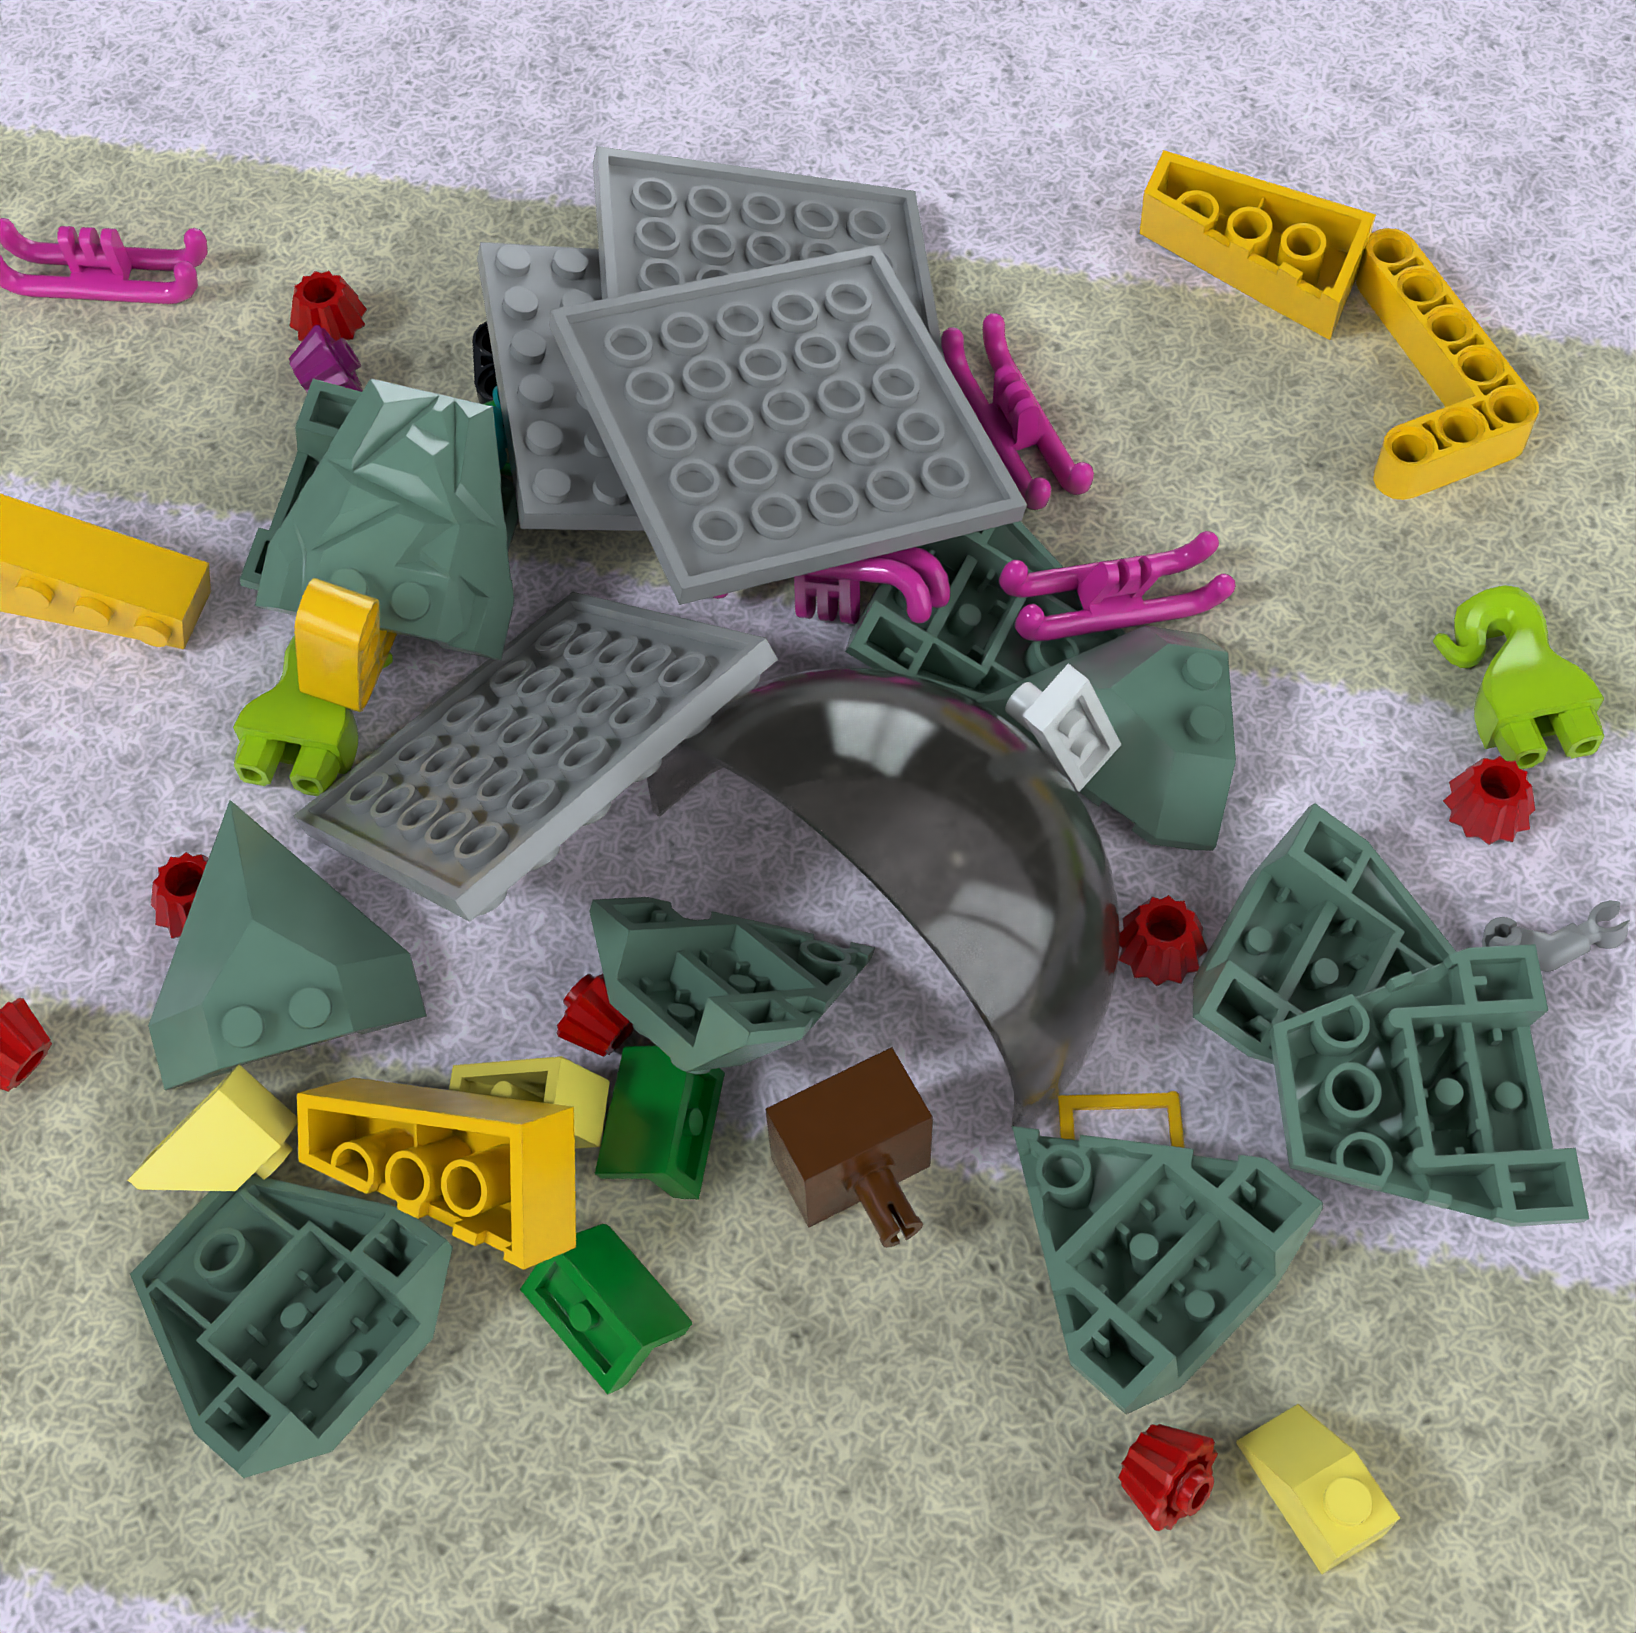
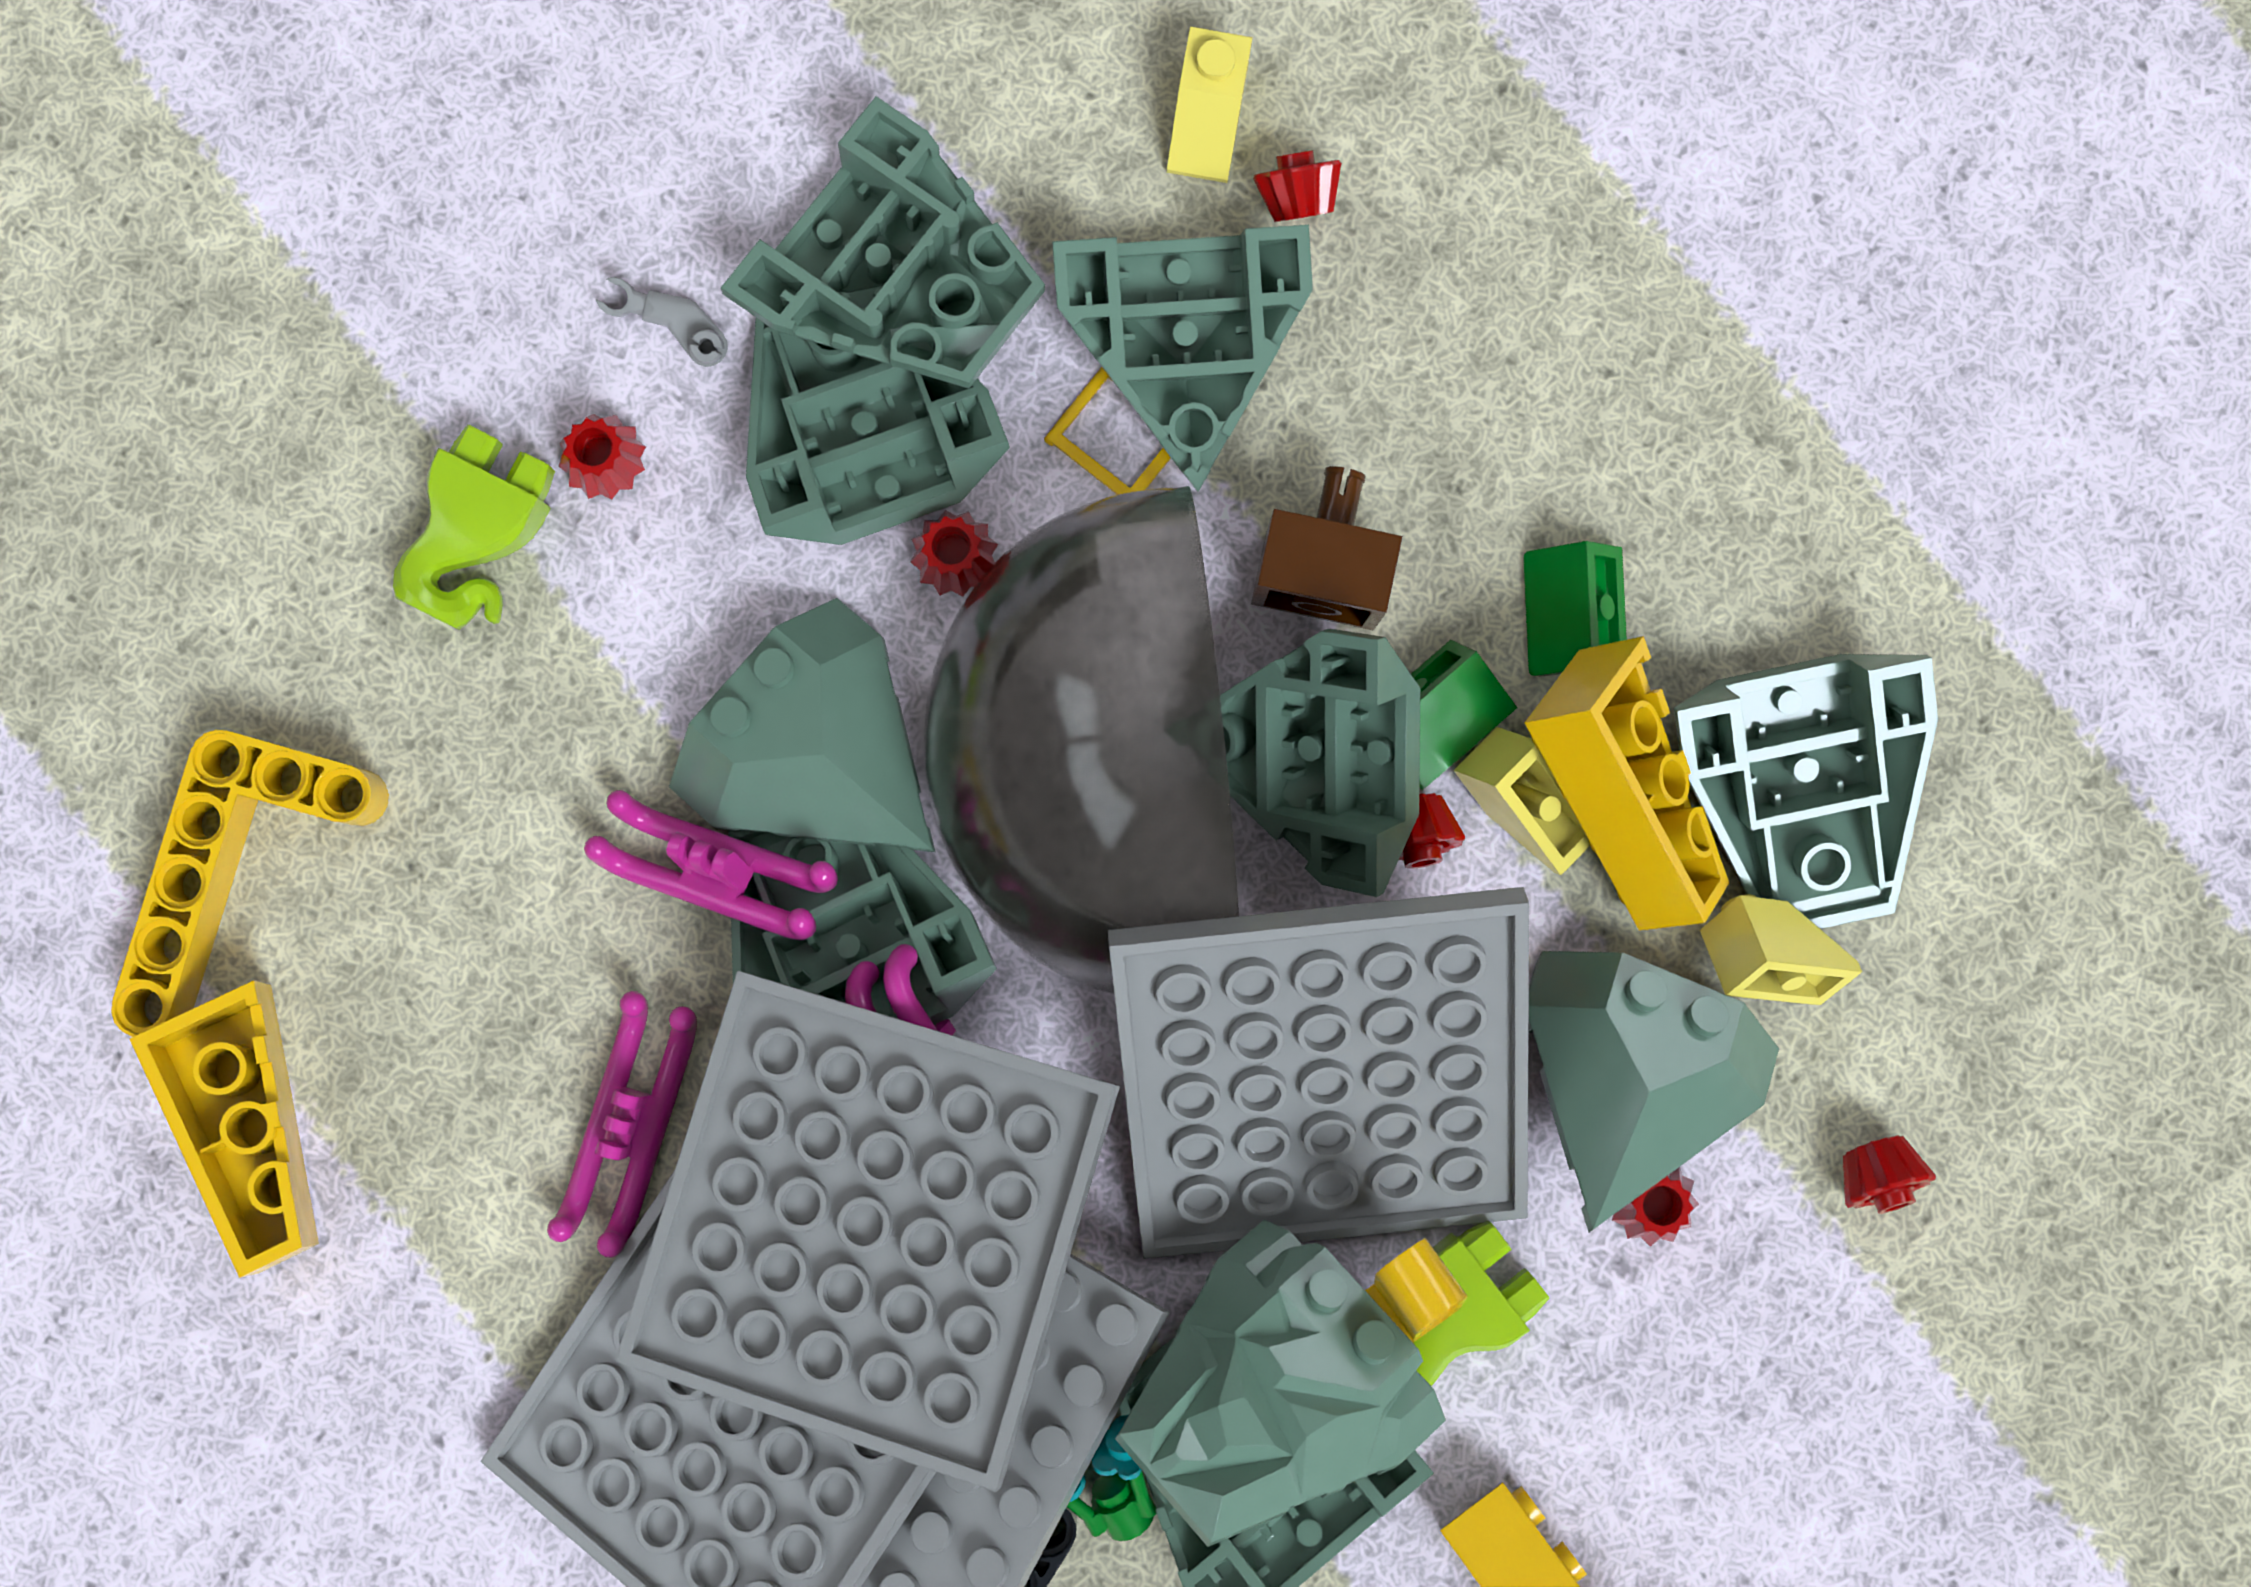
camera: 145 degrees left, 25 degrees up
(1067, 724) = (893, 722): white piece -> none

